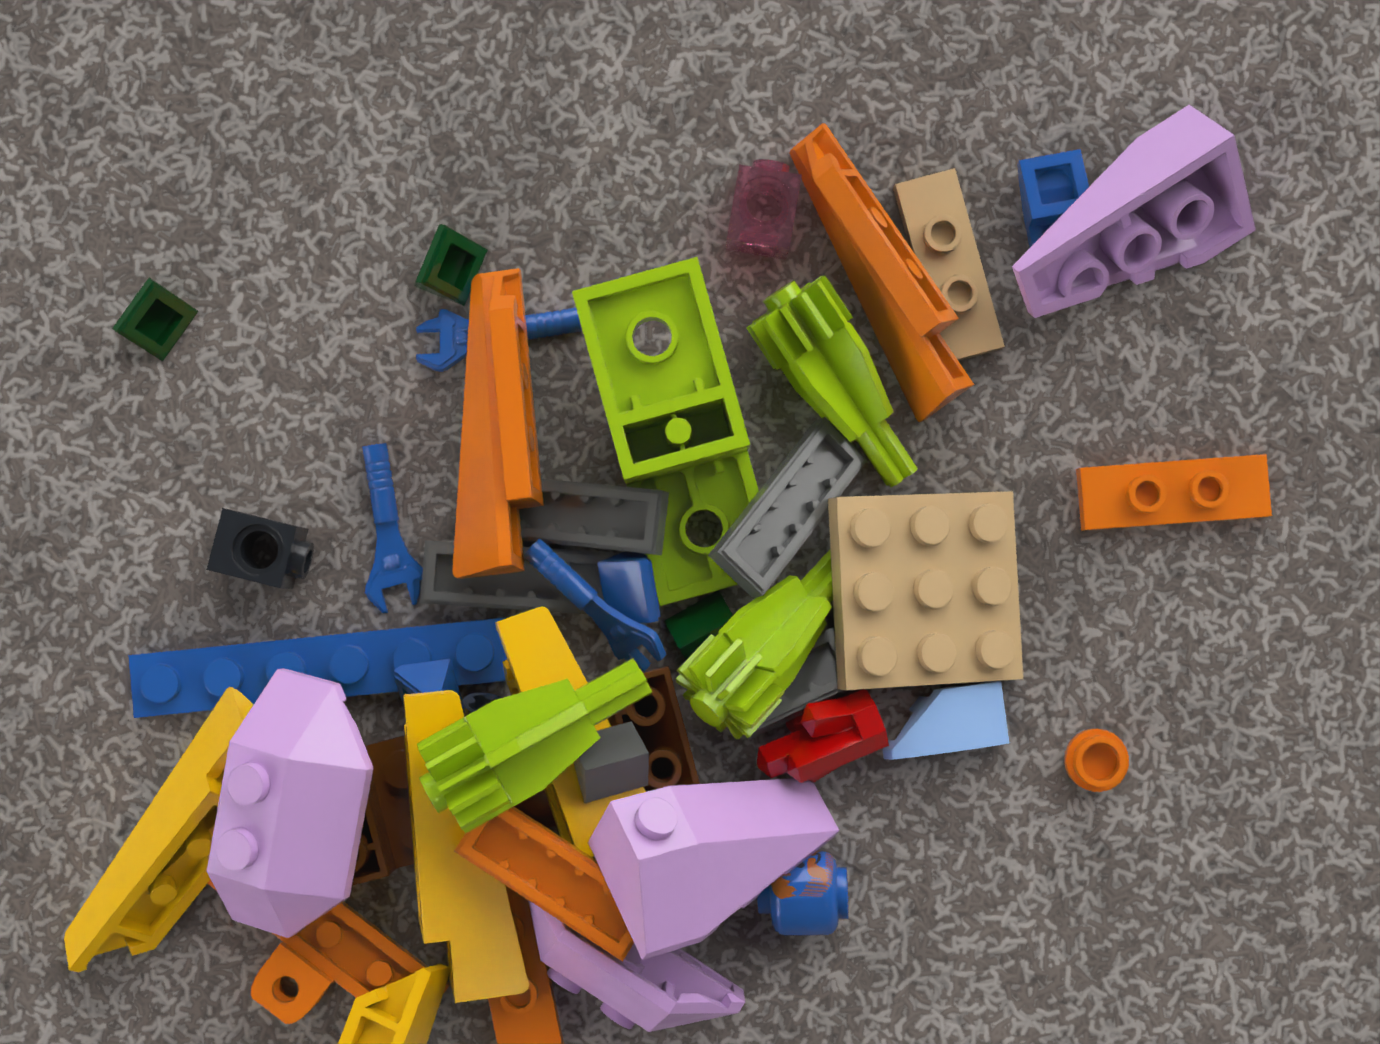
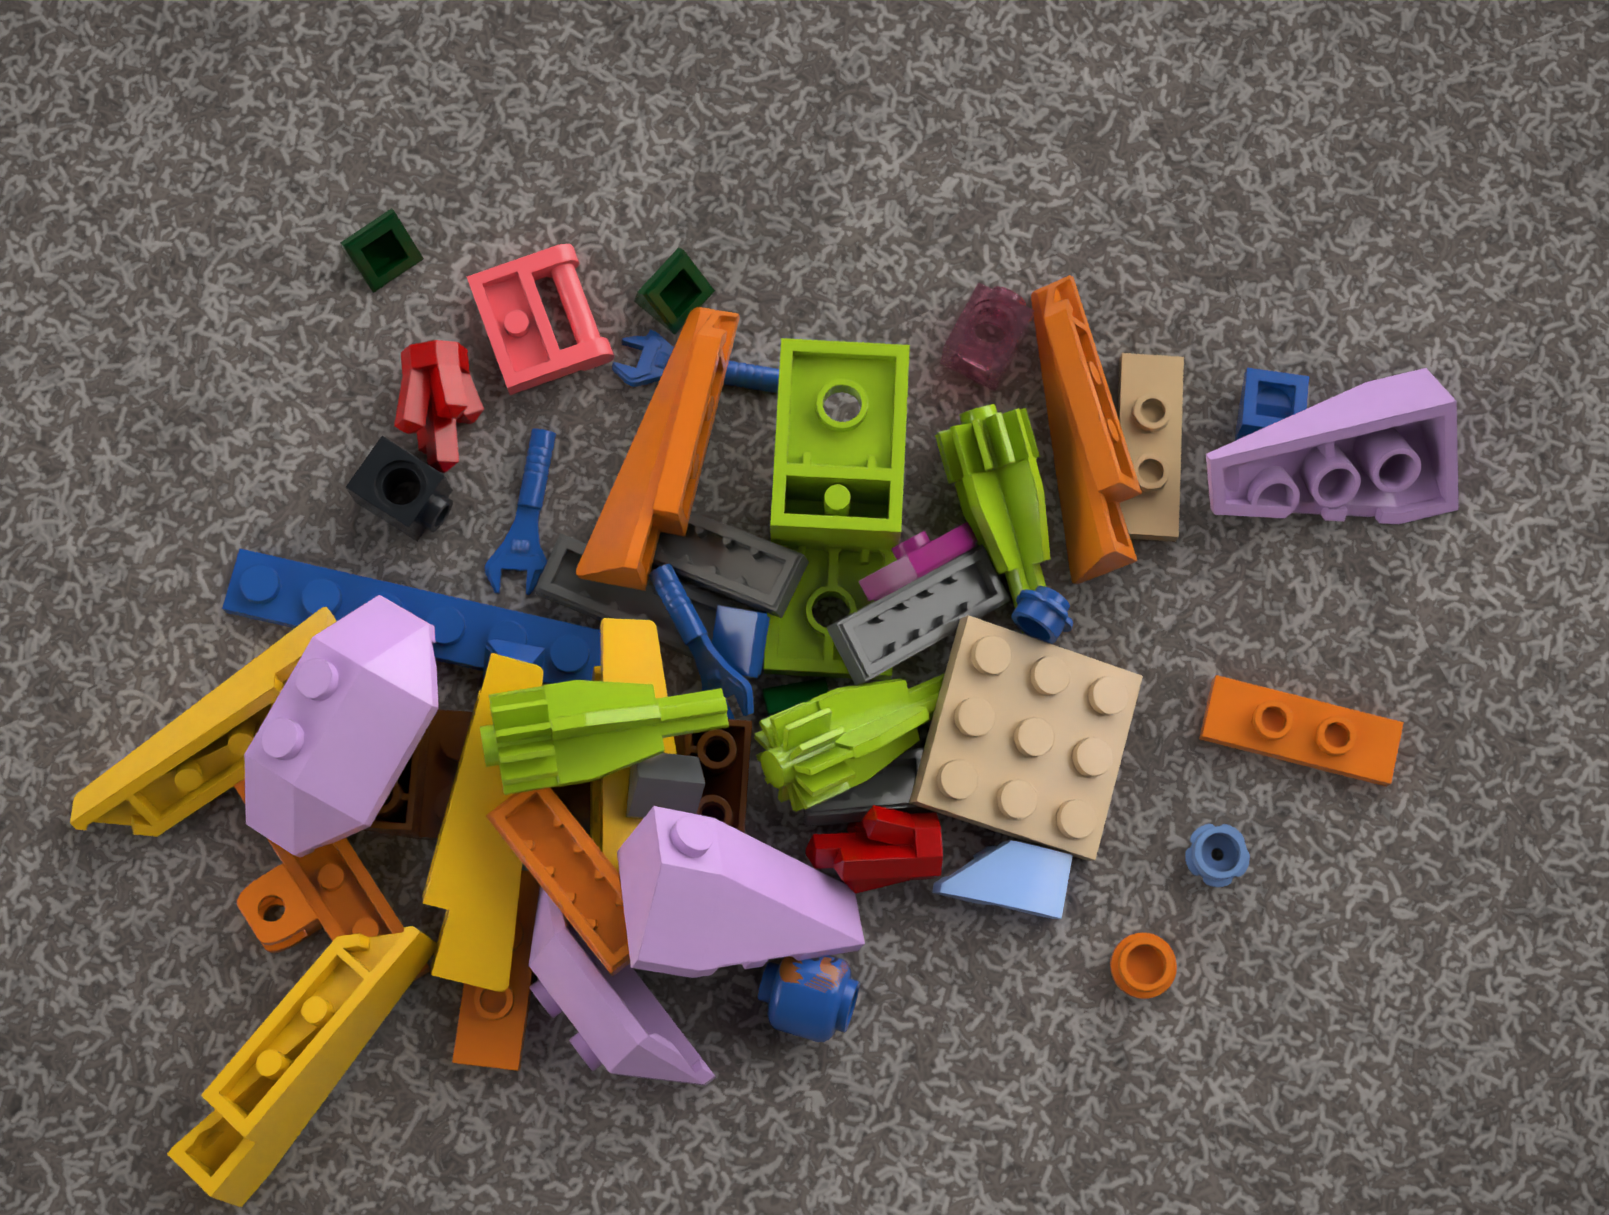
camera: 20 degrees right, 10 degrees down
(259, 447) = (434, 397): none -> red rock
(313, 347) = (520, 325): none -> coral plate
(772, 460) = (916, 558): none -> magenta plate
(904, 469) = (1042, 614): none -> blue plate
(1148, 629) = (1234, 850): none -> medium blue plate

